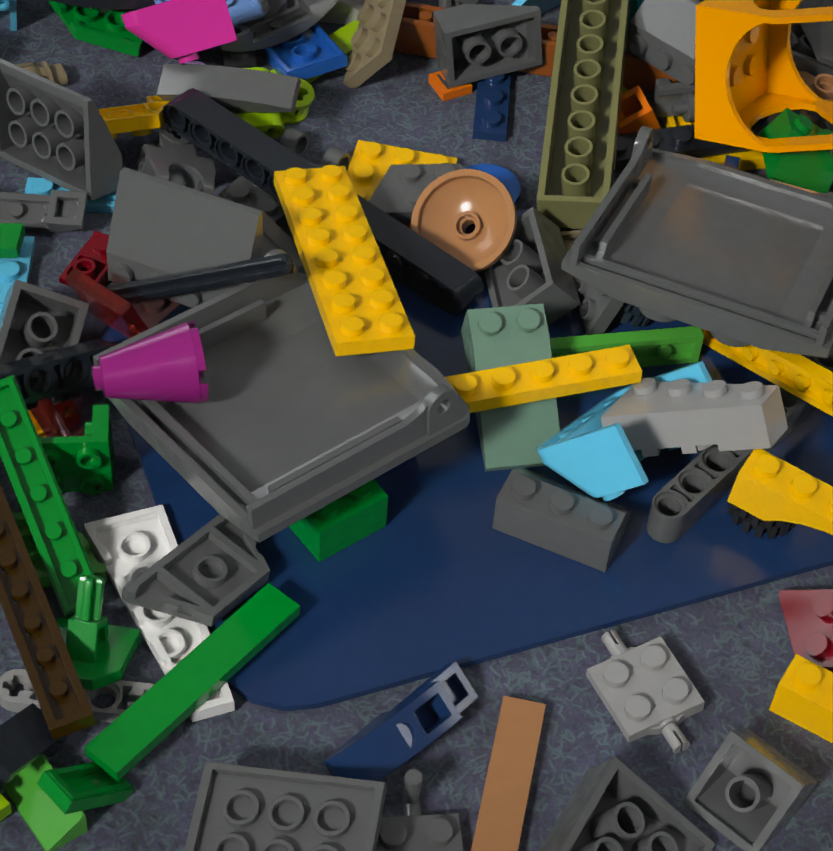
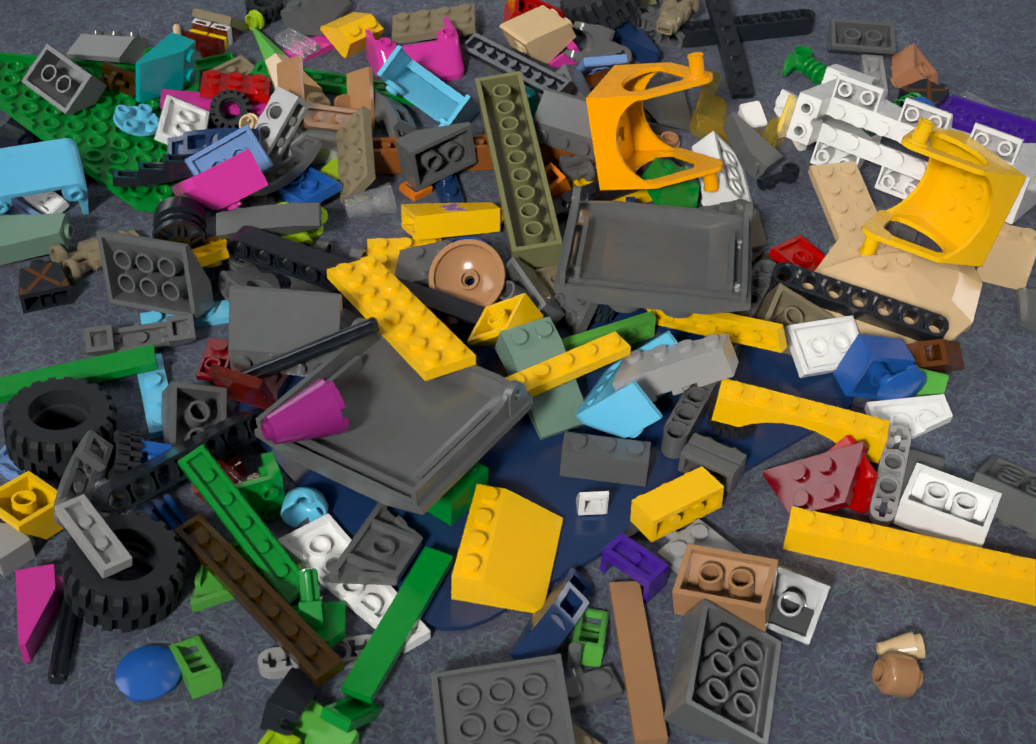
camera: 15 degrees left, 5 degrees down
(116, 70) = (180, 221): none -> black wheel
(132, 483) = (302, 503): none -> medium azure hair
(374, 617) = (506, 551): none -> yellow slope
(379, 92) = (371, 203): none -> clear plant
(438, 786) = (591, 652): none -> bright green slope
(476, 136) = (450, 219): none -> yellow slope
(487, 289) = (501, 317): none -> yellow slope
(519, 578) = (592, 503): none -> white slope
(546, 681) = (636, 563): none -> dark purple panel
(635, 608) = (676, 503): none -> yellow brick
(662, 741) = (728, 579): none -> medium nougat slope
(708, 562) = (719, 460): none -> dark grey brick

